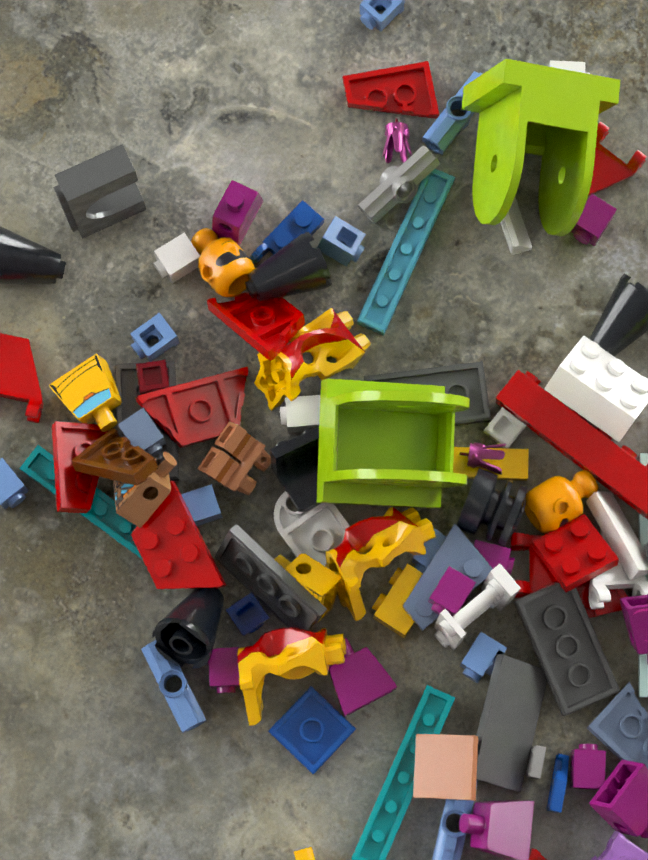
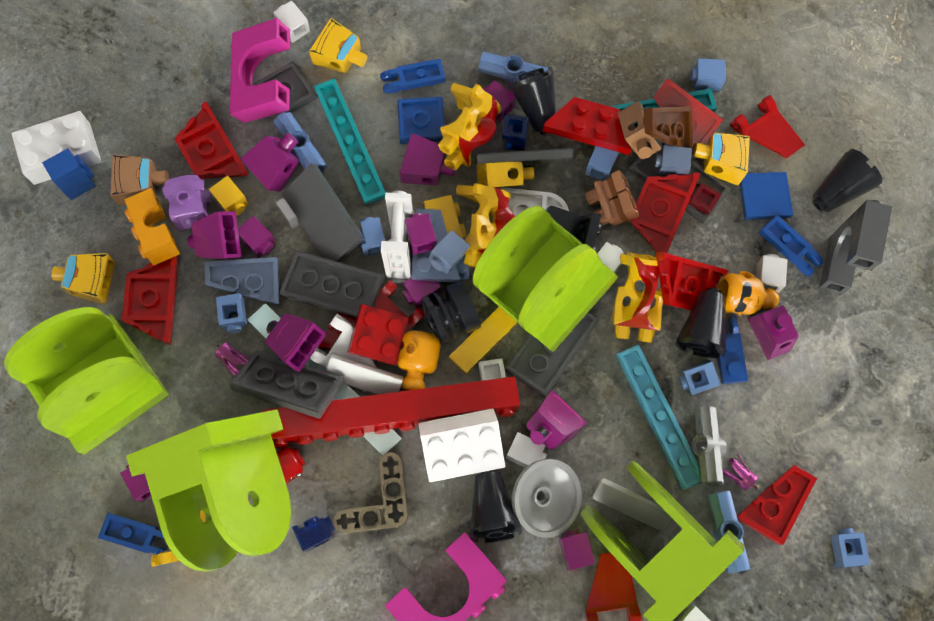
camera: 130 degrees right, 5 degrees down
(93, 326) = (766, 196): none -> blue tile
(127, 266) = (791, 245): none -> blue hinge
(153, 328) = (735, 225): medium blue brick -> none
(269, 780) = (413, 76): none -> blue hinge
(445, 550) = (448, 252): none -> sand blue brick
(445, 766) = (331, 157): tile -> none
(478, 452) = (488, 334): flat silver piece -> none
(504, 329) = (554, 422): none -> magenta torso
(550, 333) = (524, 451): none -> white brick
(558, 784) = (264, 215): blue tile -> none
(574, 836) = (229, 196): none -> yellow brick
(575, 278) = (557, 502): none -> light grey dish

